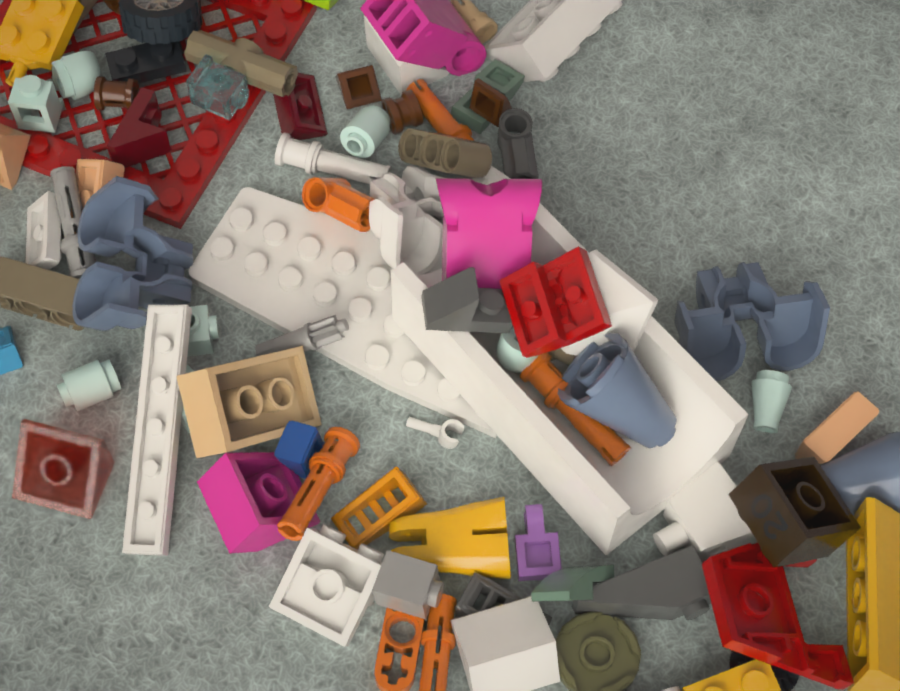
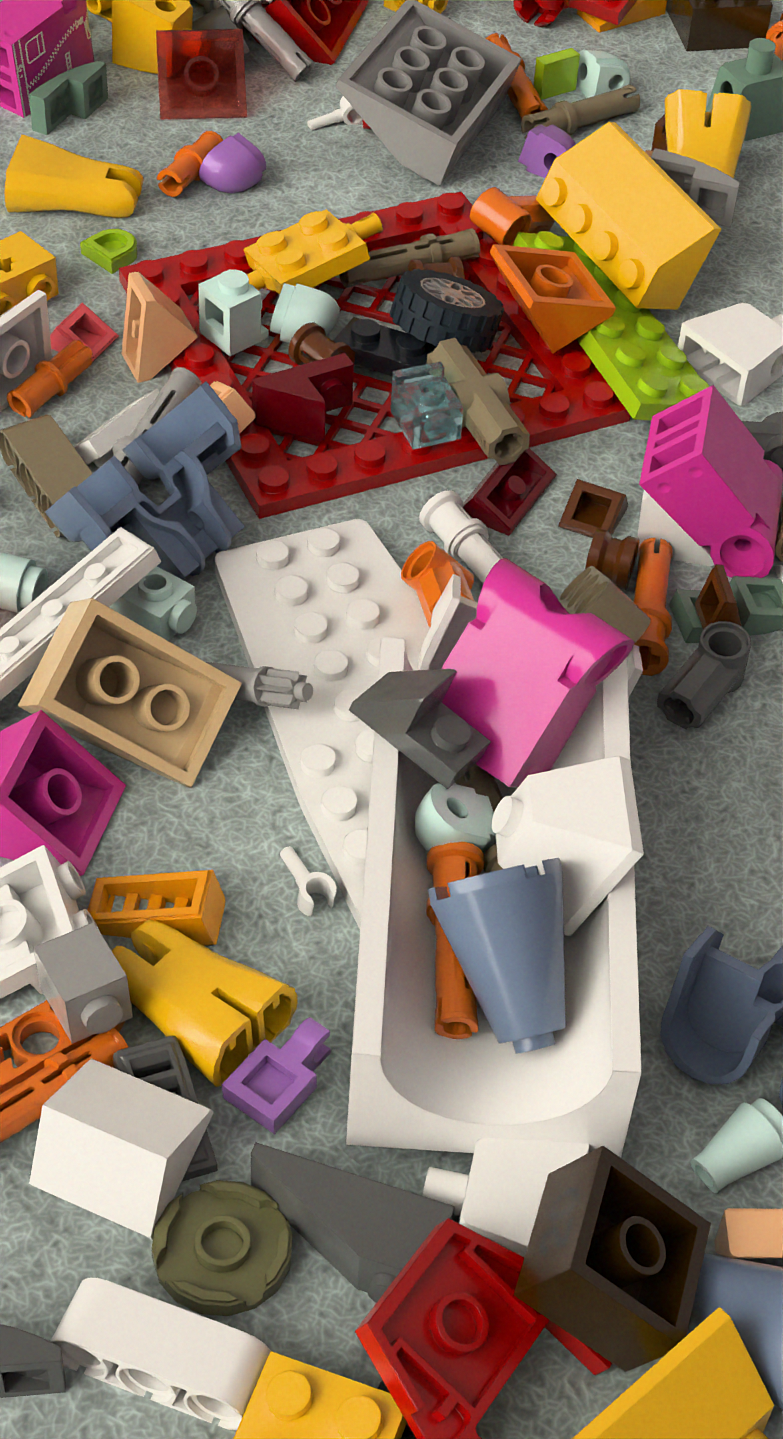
camera: 40 degrees right, 15 degrees down
(298, 446) = (136, 785): blue slope -> none
(325, 469) = (136, 818): orange pin -> none
(365, 131) = (548, 548): light aqua brick -> none
(555, 303) = (521, 781): red slope -> none
(571, 583) = (260, 1128): sand green slope -> none

